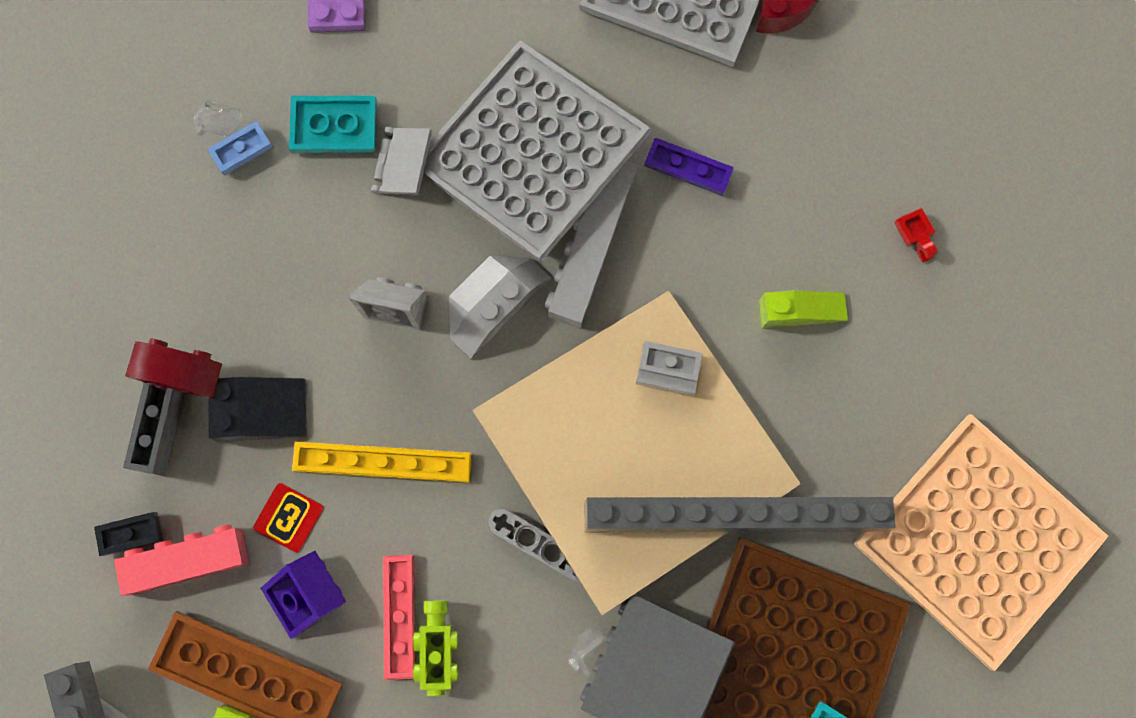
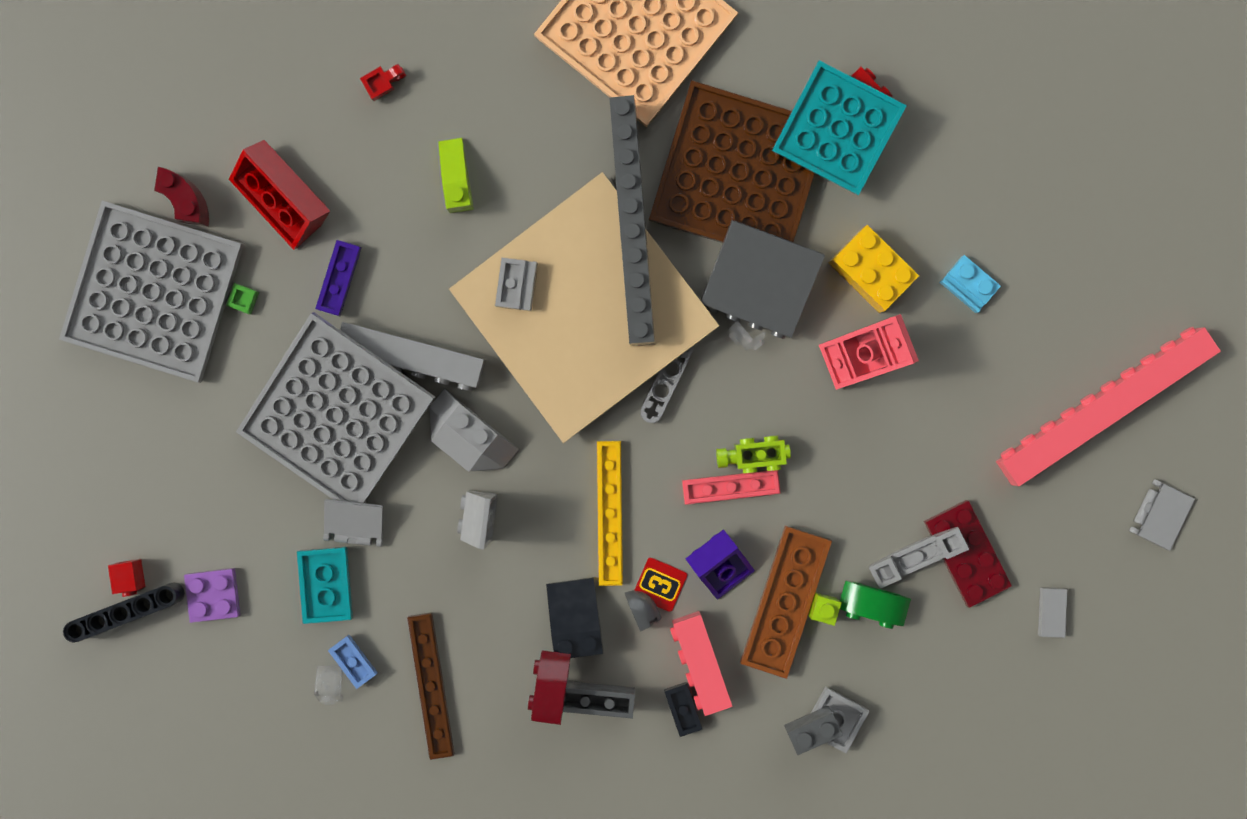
camera: 90 degrees left, 10 degrees up
(200, 234) = (431, 685): none -> reddish brown tile
(259, 492) = (643, 609): none -> dark grey brick
(671, 61) = (242, 298): none -> bright green tile
(790, 108) = (278, 193): none -> red slope

